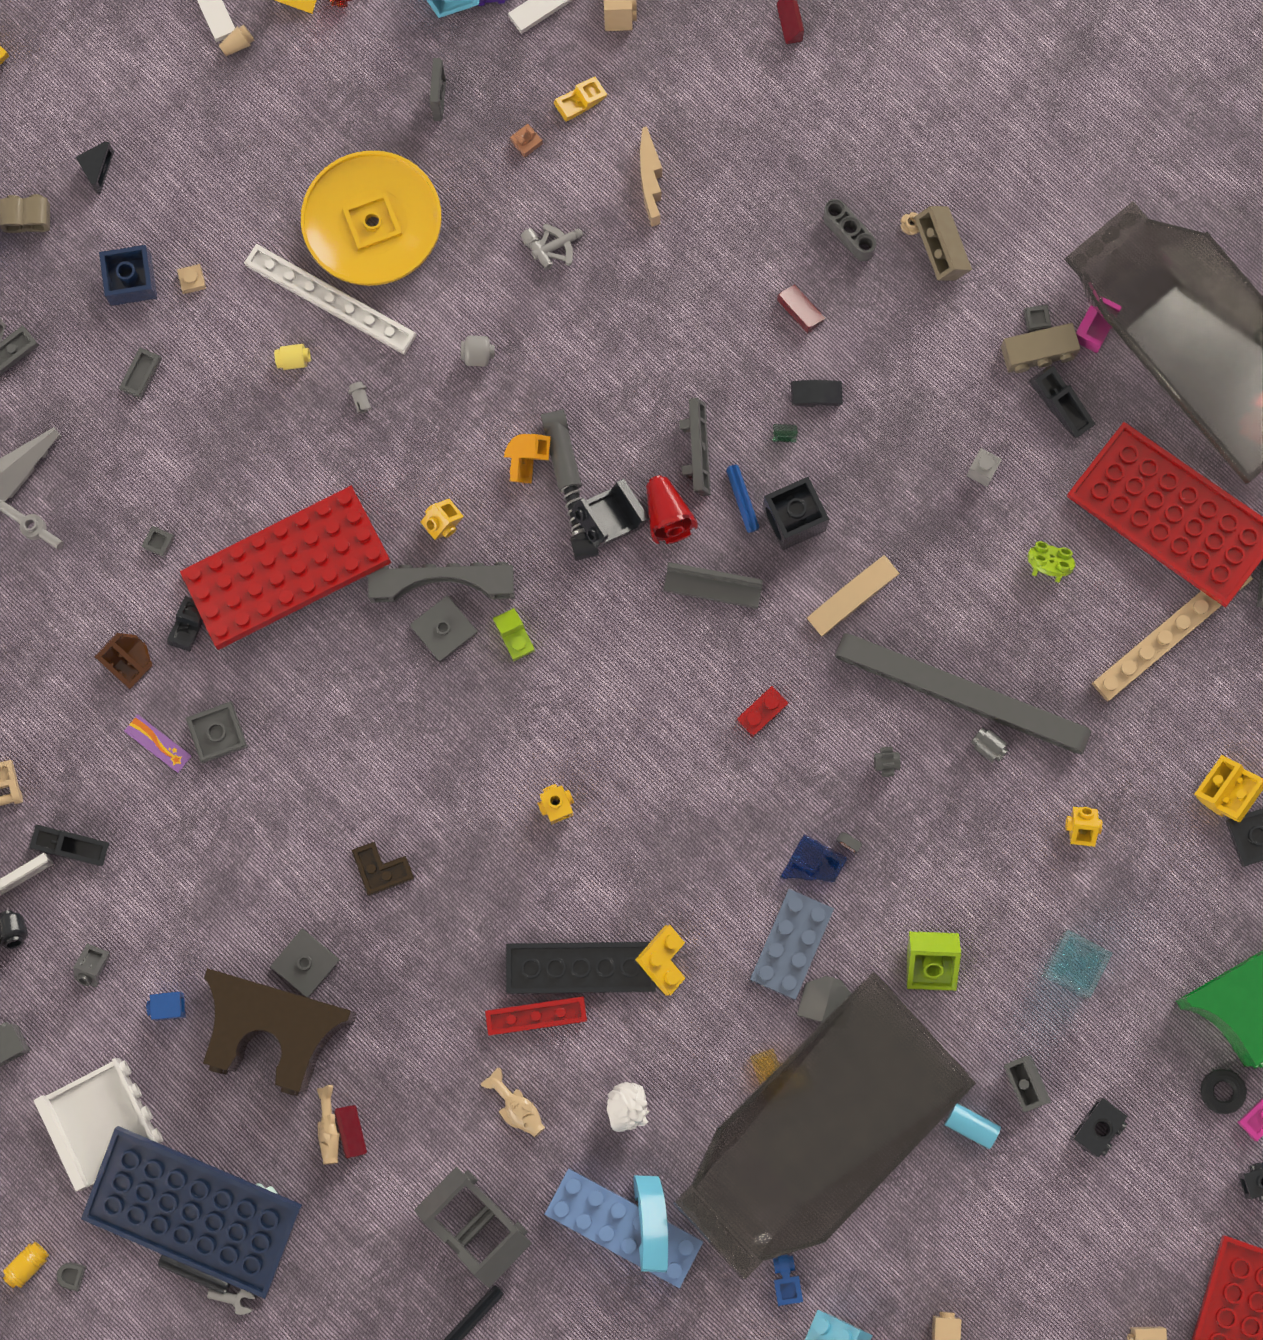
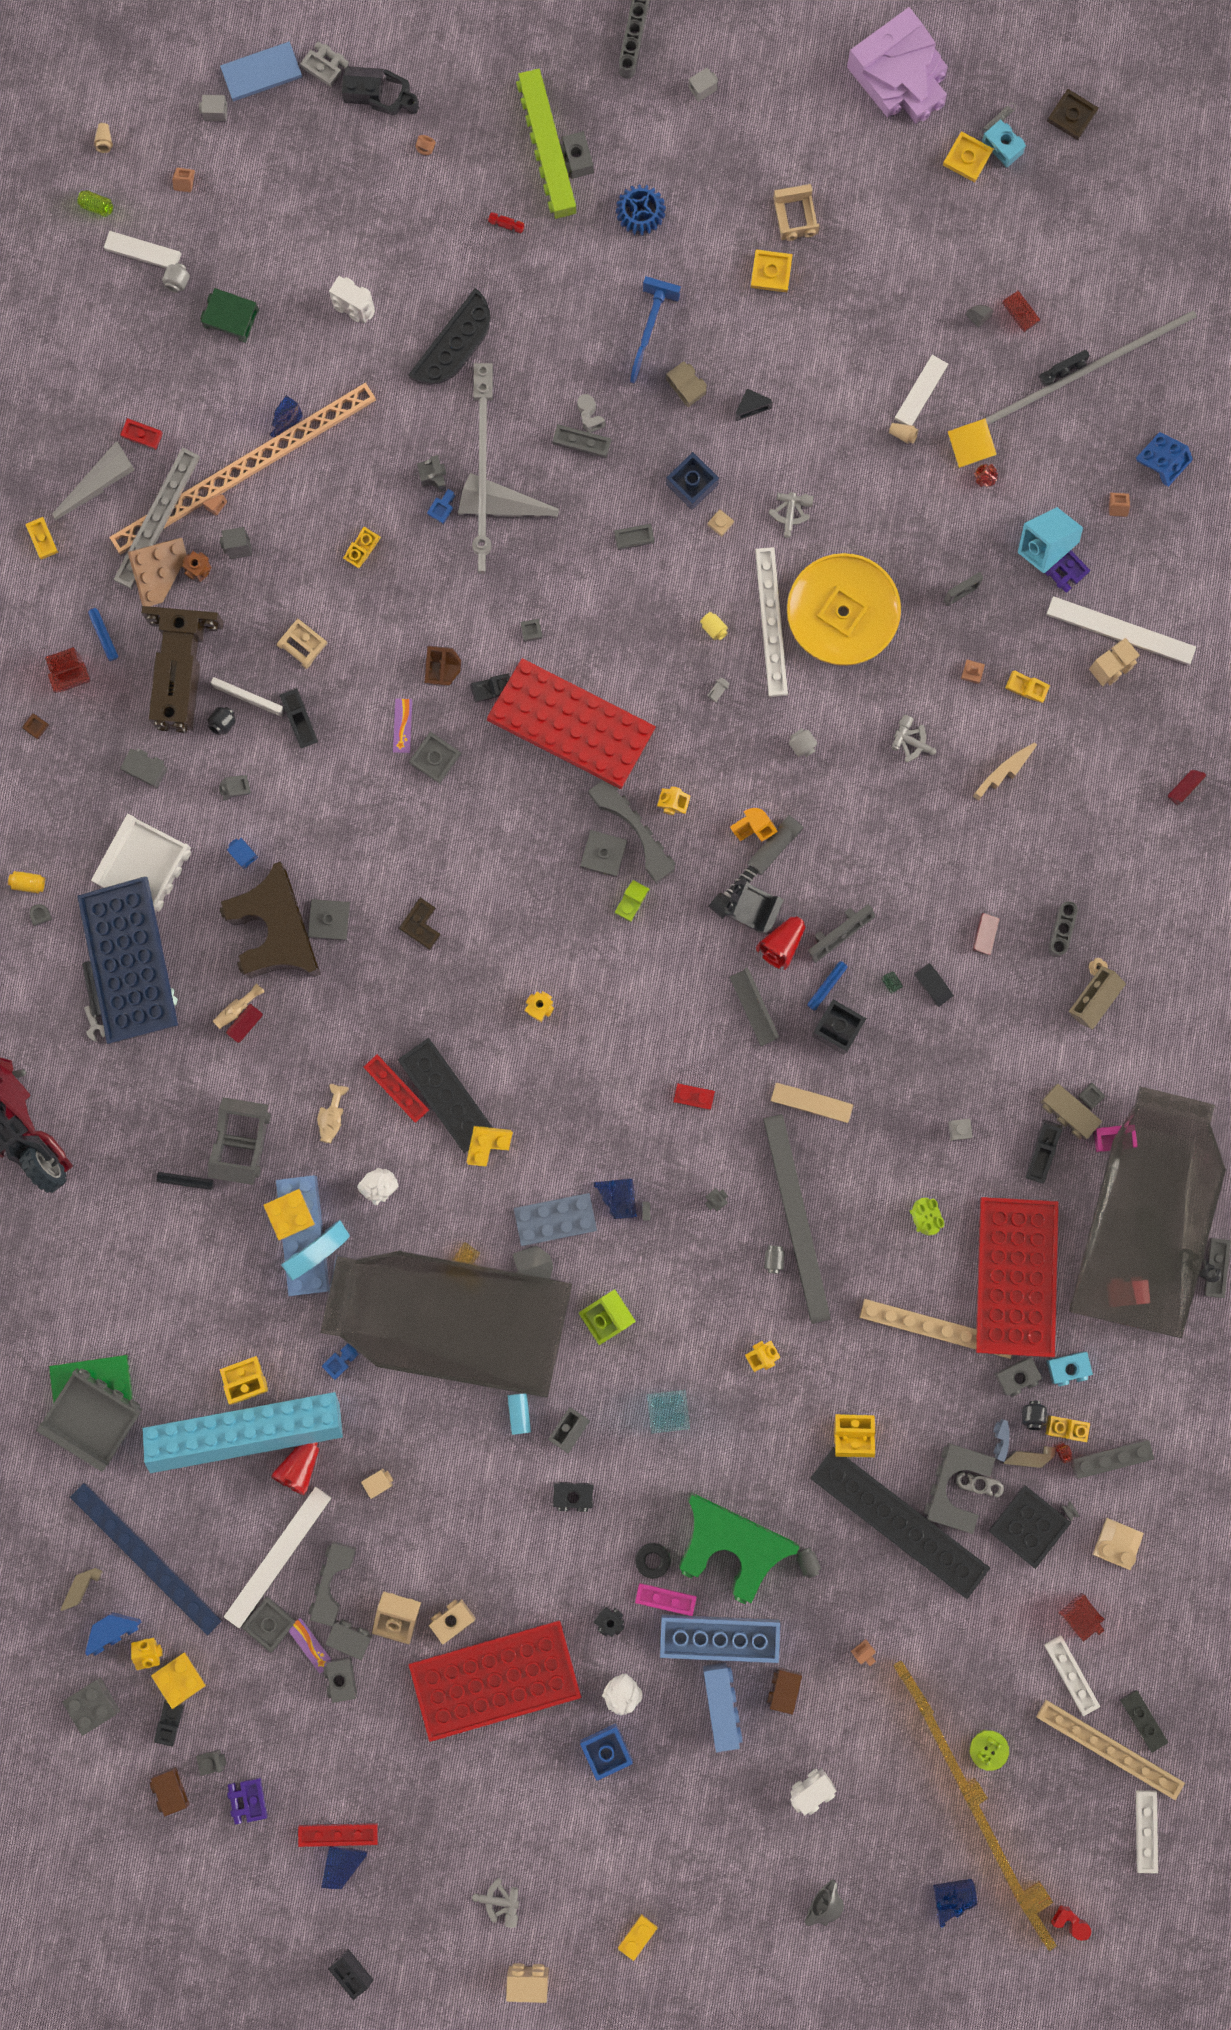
camera: 55 degrees right, 5 degrees up
(223, 194) = (791, 501): none -> light grey piece
(592, 1225) = (289, 1214): none -> yellow plate

